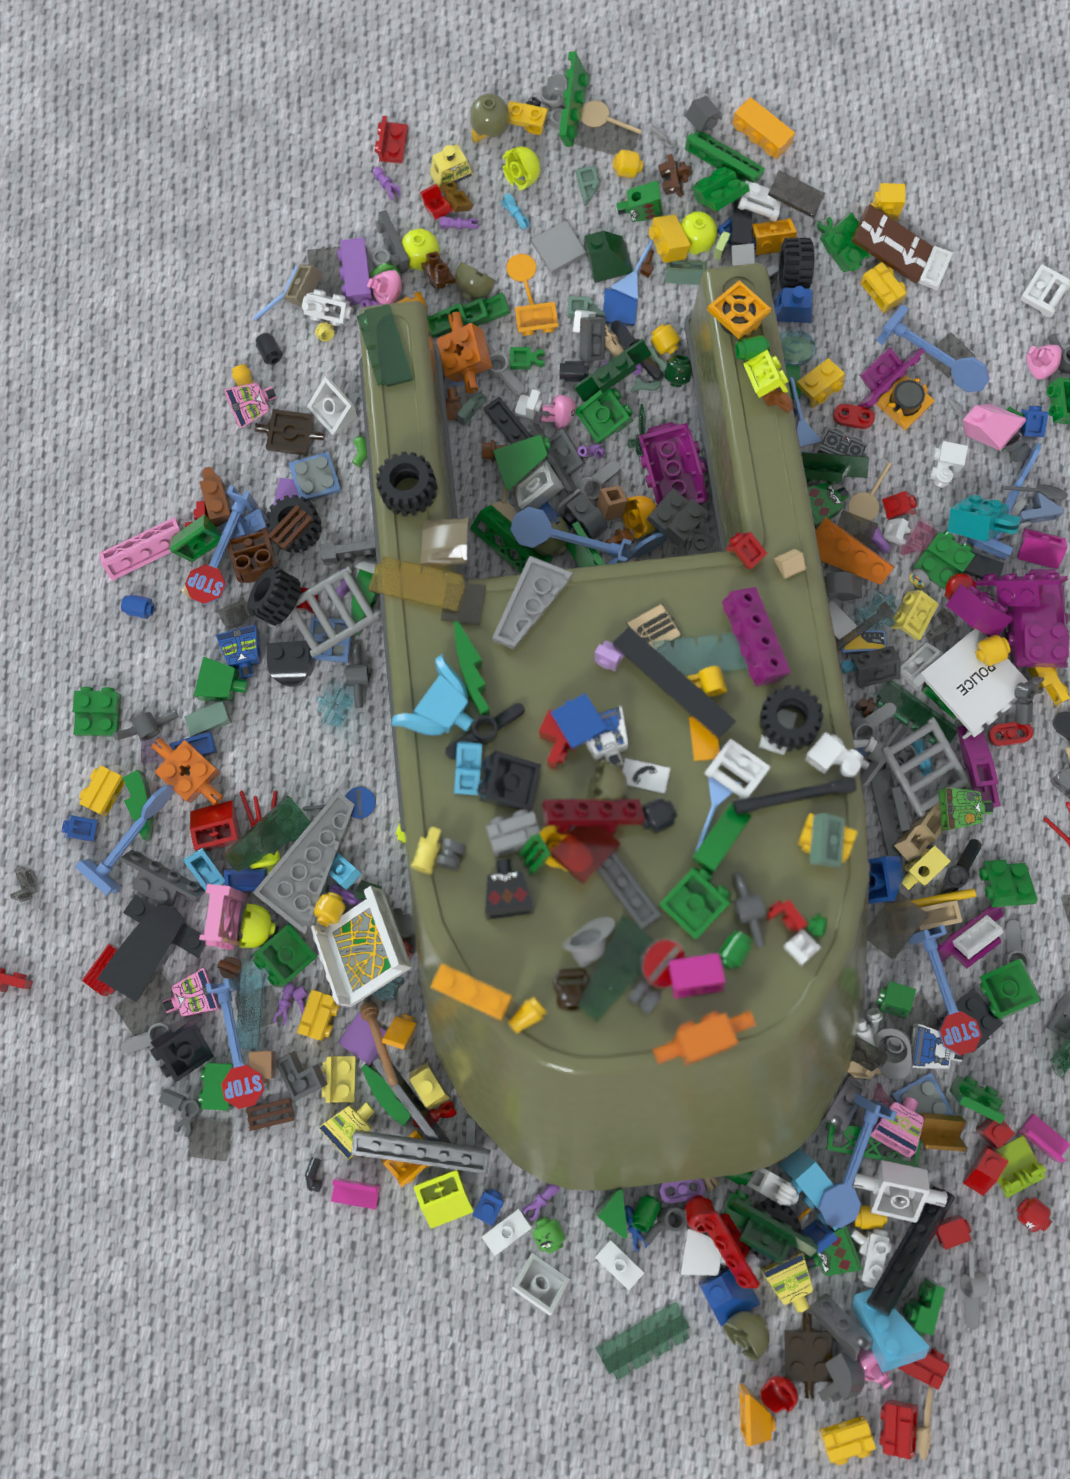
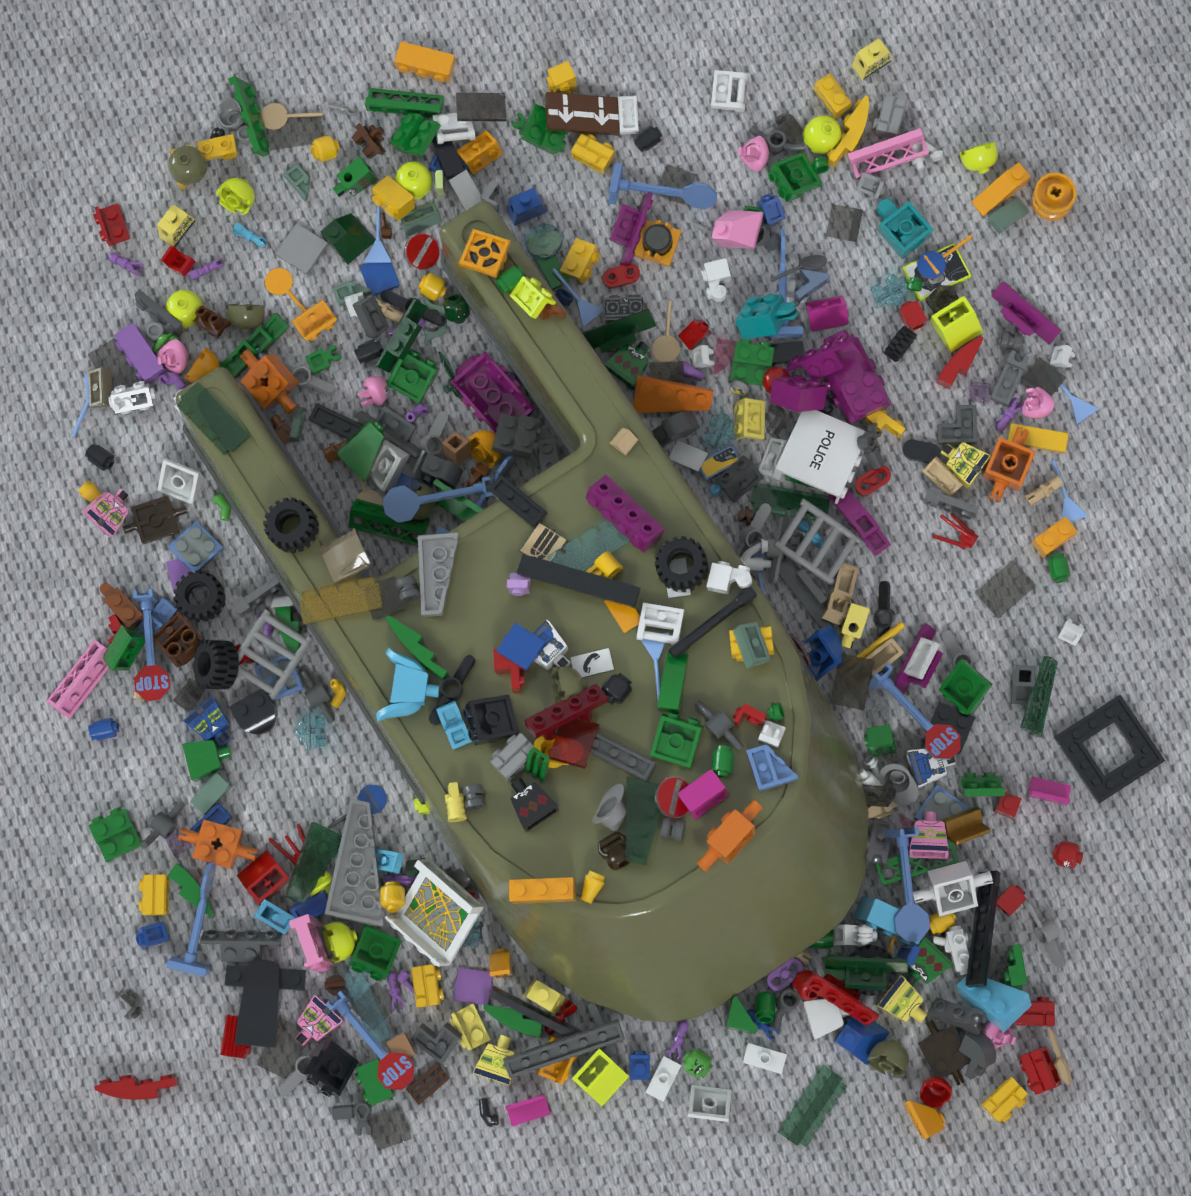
camera: 20 degrees left, 0 degrees up
(302, 514) = (194, 597): reddish brown tile -> none
(325, 331) = (140, 419): light yellow plate -> none
(369, 1013) = (467, 963): medium nougat piece -> none
(380, 682) = (339, 692): none -> yellow arm
(457, 199) = (193, 249): pearl gold plate -> none
(491, 605) = (407, 589): none -> dark grey wheel
(529, 406) = (345, 399): white bracket -> none
(649, 571) = (517, 501): none -> black tile
(672, 302) = (422, 251): none -> red piece
(703, 114) = (368, 74): dark grey brick -> none
(747, 549) = (584, 446): red bracket -> none
(781, 984) = (769, 768): none -> medium blue wing
(796, 263) = (510, 171): black tyre -> none
(884, 612) = (722, 433): clear smoke piece -> none
(944, 298) = (648, 139): none -> black brick
(961, 808) = (860, 561): torso -> none
(986, 1170) = (1014, 839): red slope -> none
(992, 650) = (824, 421): yellow head -> none
(1007, 883) = (925, 604): green plate -> none
(1021, 1169) = (1036, 825): lime hinge -> none

